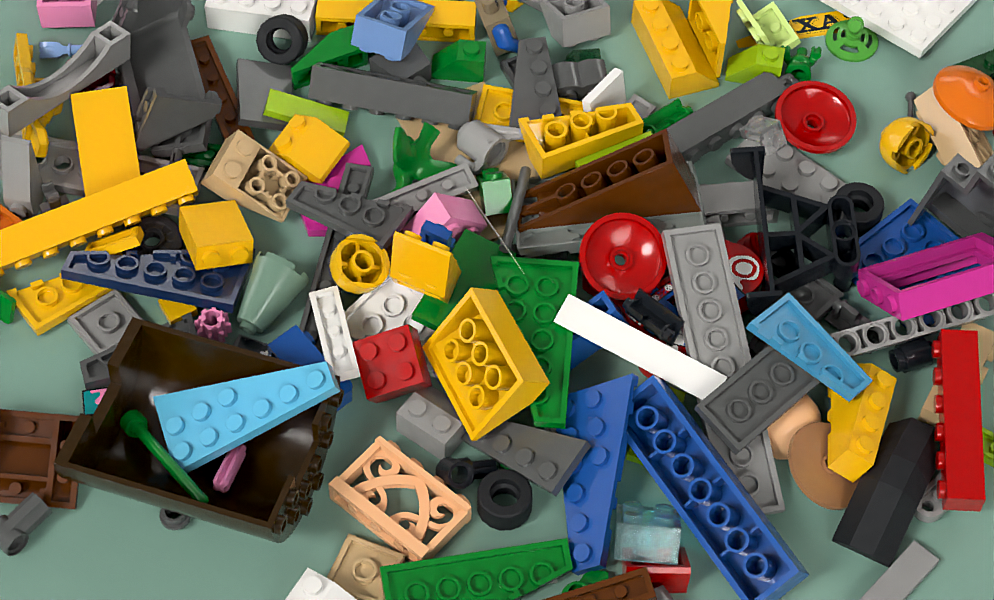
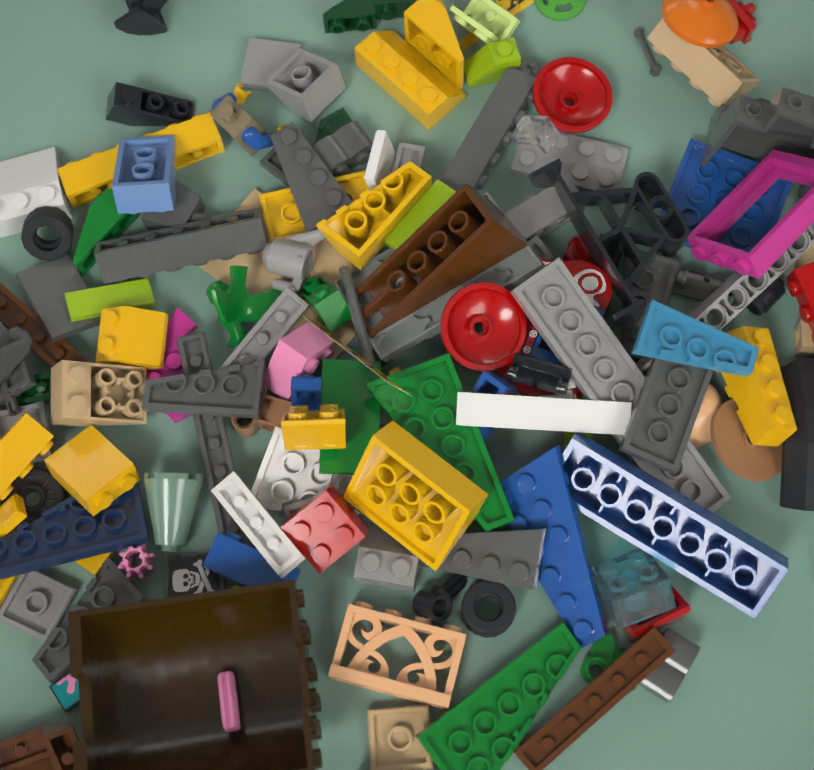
camera: 20 degrees left, 15 degrees up
(136, 426) = (119, 701): green piece -> none
(222, 416) = (201, 663): medium azure wing -> none
(359, 264) = (245, 443): yellow cylinder -> none
(460, 62) = (224, 179): green slope -> none
(666, 116) = (440, 155): green hinge -> none
(801, 64) = (530, 43): green piece -> none
(869, 200) = (652, 155): black tyre -> none
(906, 143) = (660, 85): yellow cylinder -> none

